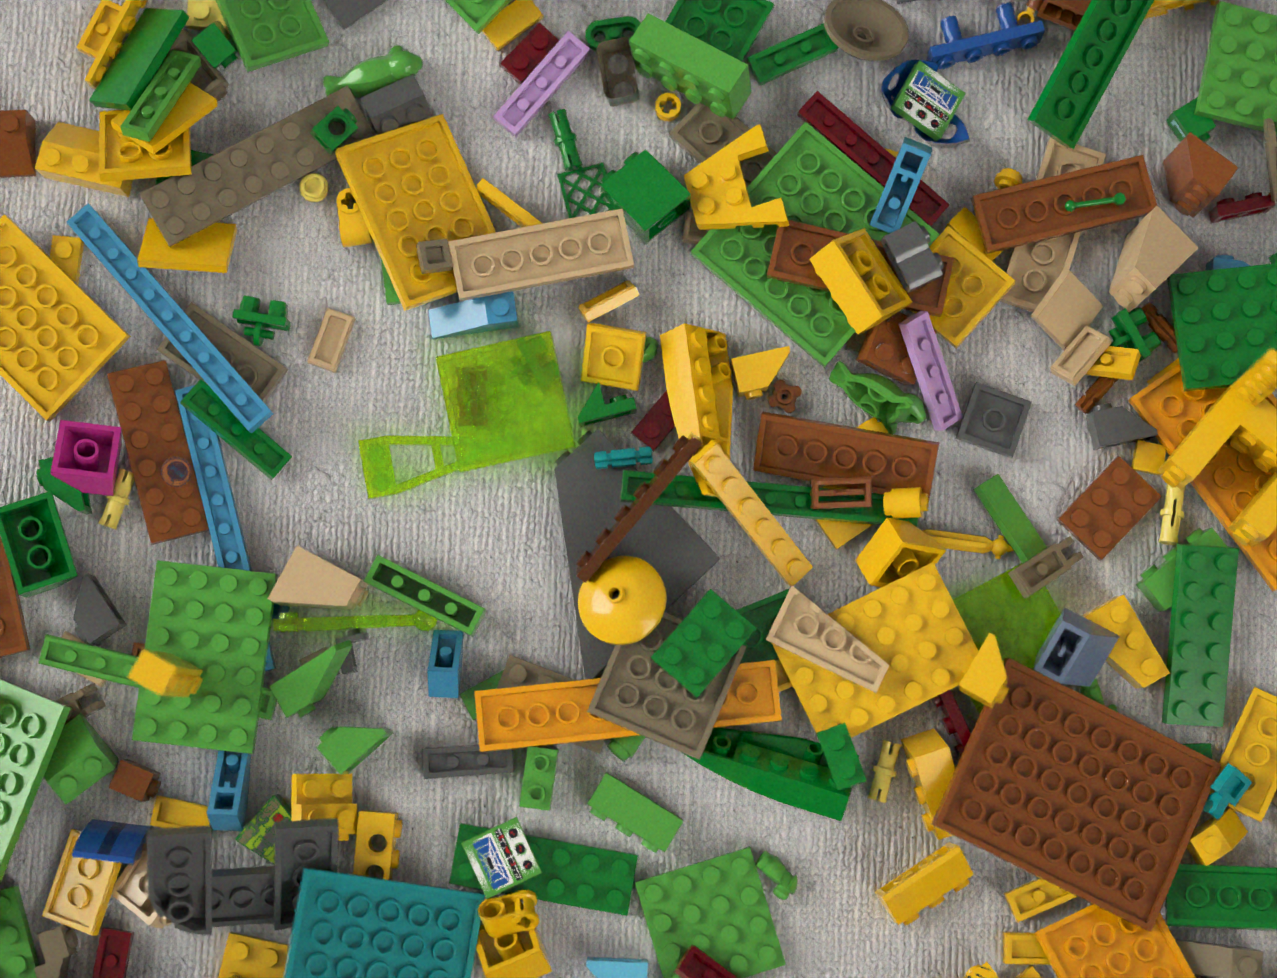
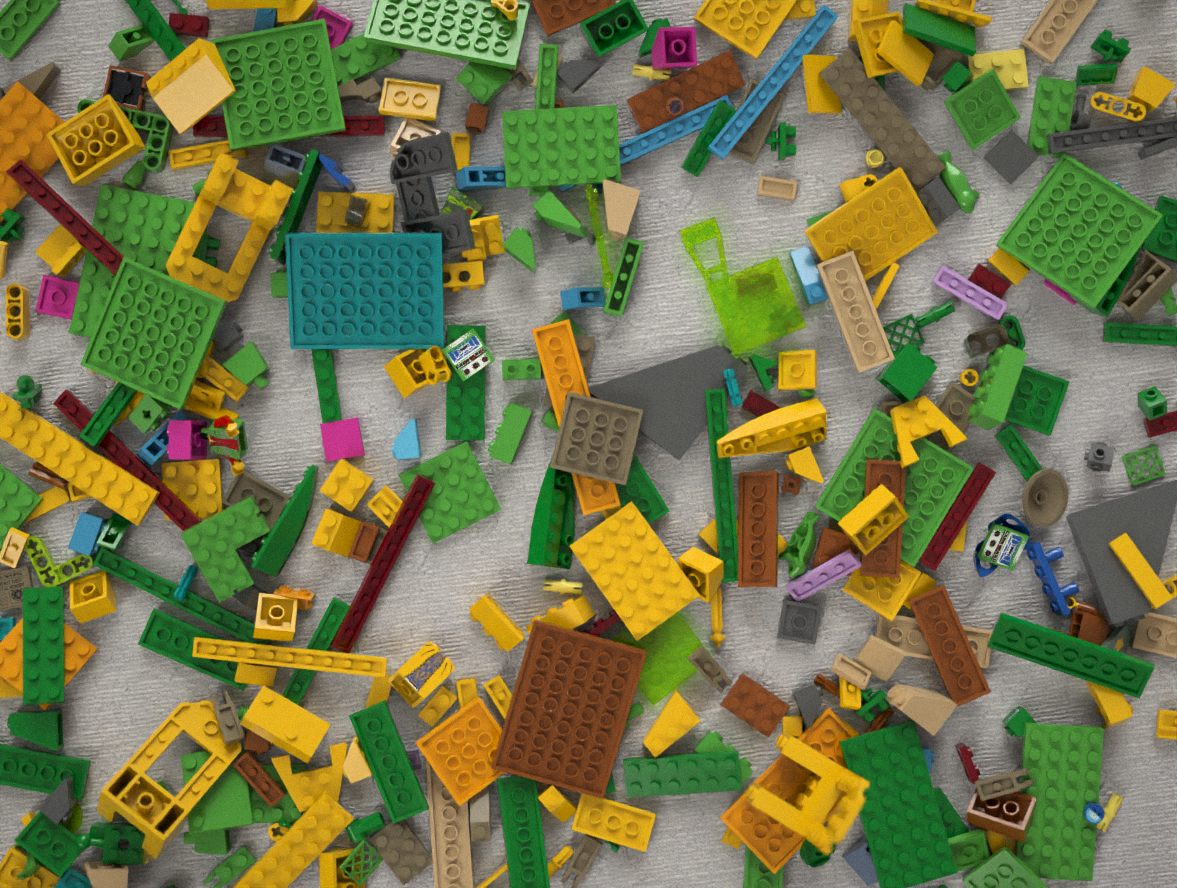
camera: 80 degrees right, 5 degrees up
(111, 841) = (437, 111): blue slope -> none
(160, 95) = (916, 48): bright green plate -> none
(166, 674) = (546, 125): yellow brick -> none
(326, 138) = (906, 161): green brick -> none
(434, 256) = (842, 243): dark tan plate -> none
(465, 761) = (524, 322): dark grey plate -> none
(608, 300) = (833, 361): yellow tile -> none
(633, 612) = (641, 412): yellow dish -> none
(645, 496) = (709, 404): reddish brown plate -> none
(703, 643) = (623, 457): green plate -> none
(751, 513) = (710, 474): yellow plate -> none
(776, 871) = (488, 529): bright green arm -> none
(815, 492) = (742, 530): dark orange tile -> none
(820, 639) = (638, 530): tan wing -> none
(841, 757) = (566, 556): green plate -> none
(901, 185) = (941, 536): dark azure slope -> none
(905, 503) = (734, 571): yellow brick -> none
(912, 257) = (894, 550): dark grey brick -> none
(986, 675) = (633, 639): yellow slope -> none
(1007, 178) = (960, 607): yellow plate -> none
(1010, 518) = (737, 642): bright green tile -> none
(1074, 650) = (659, 694): sand blue slope -> none
(1118, 200) = (958, 680): green hinge -> none
(1171, 515) = (744, 746): light yellow pin -> none
(1195, 175) = (982, 728): dark orange slope -> none
(1228, 789) = (588, 805): teal plate -> none

